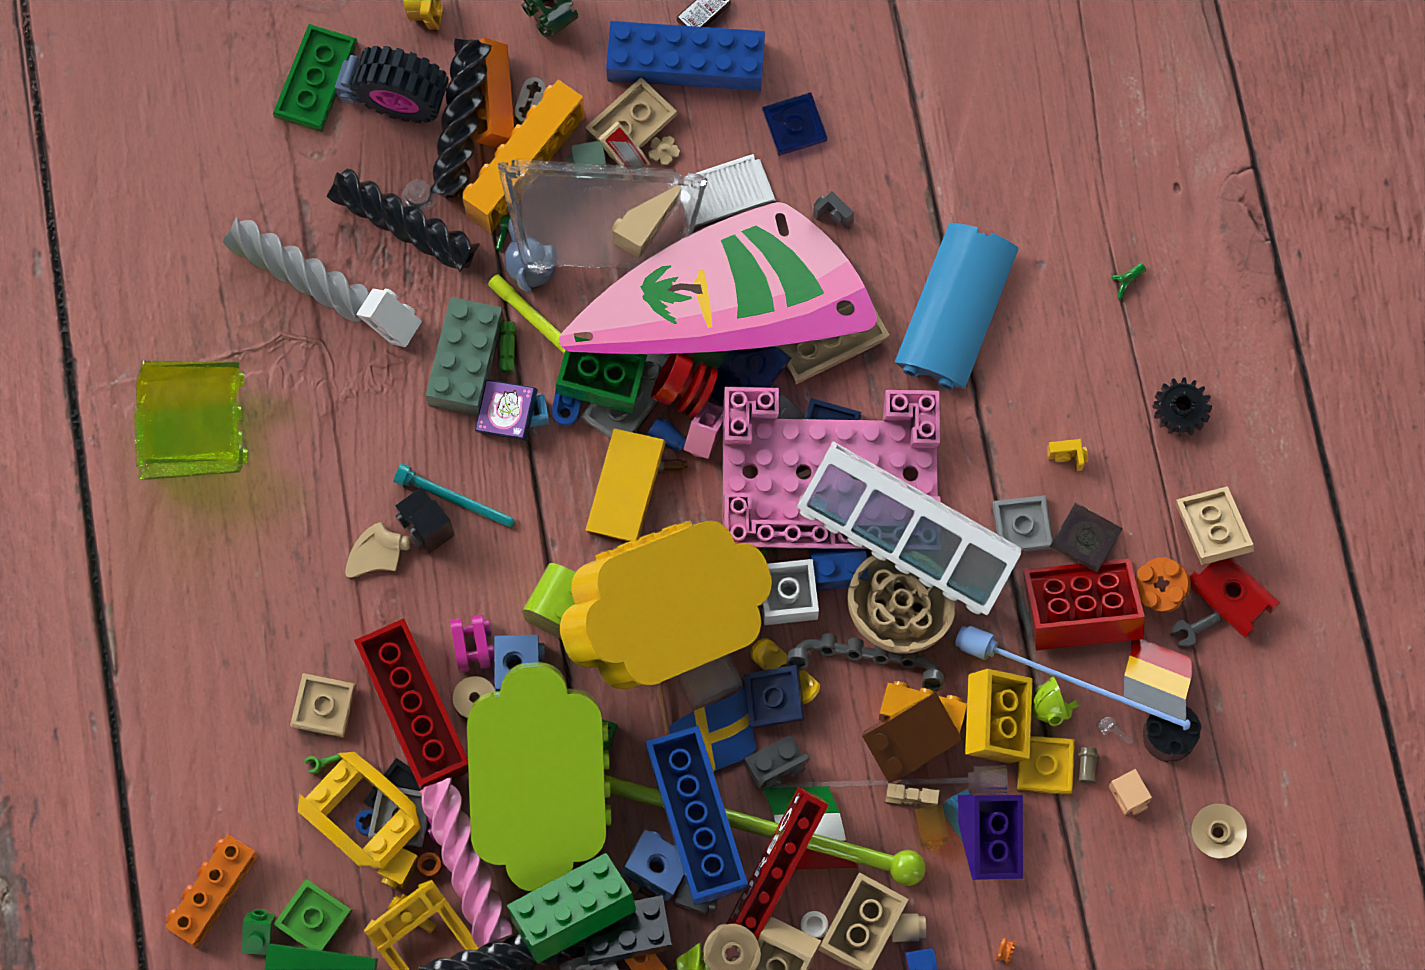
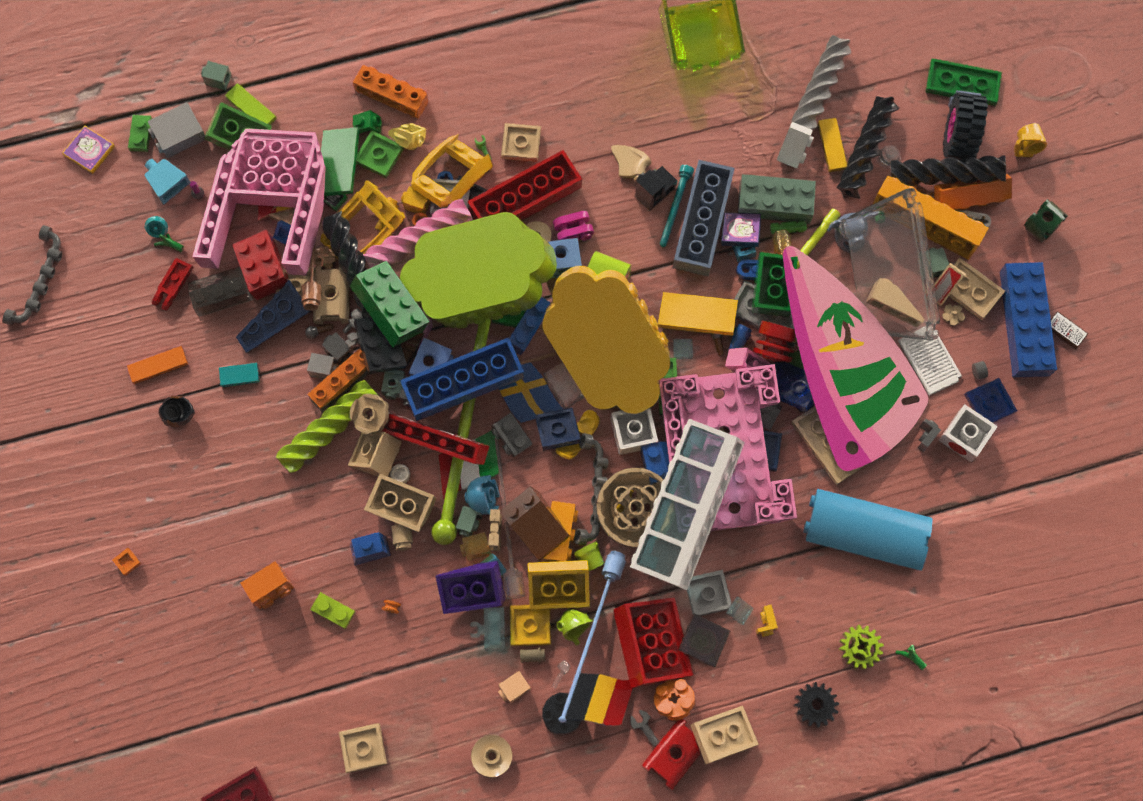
camera: 80 degrees right, 0 degrees up
(291, 868) = (408, 136): none -> light yellow hand
(388, 268) = (832, 144): none -> yellow tile
(482, 458) = (703, 218): none -> sand blue brick
(534, 358) = (781, 241): none -> clear yellow brick
(625, 724) = (528, 326): none -> blue brick
(671, 512) = (683, 348): none -> clear light blue tile
(688, 932) = (392, 392): none -> sand green brick
(749, 129) = (979, 370): none -> dark grey piece
(838, 158) = (968, 433): none -> white brick
(861, 810) = (482, 494): none -> dark azure cylinder
(895, 833) = (468, 522): none -> sand green brick
(957, 672) = (591, 554): none -> lime piece
(1050, 486) = (740, 610): none -> clear light blue tile
(1050, 812) = (492, 629): none -> clear light blue brick
(1120, 332) = (864, 654): none -> lime gear

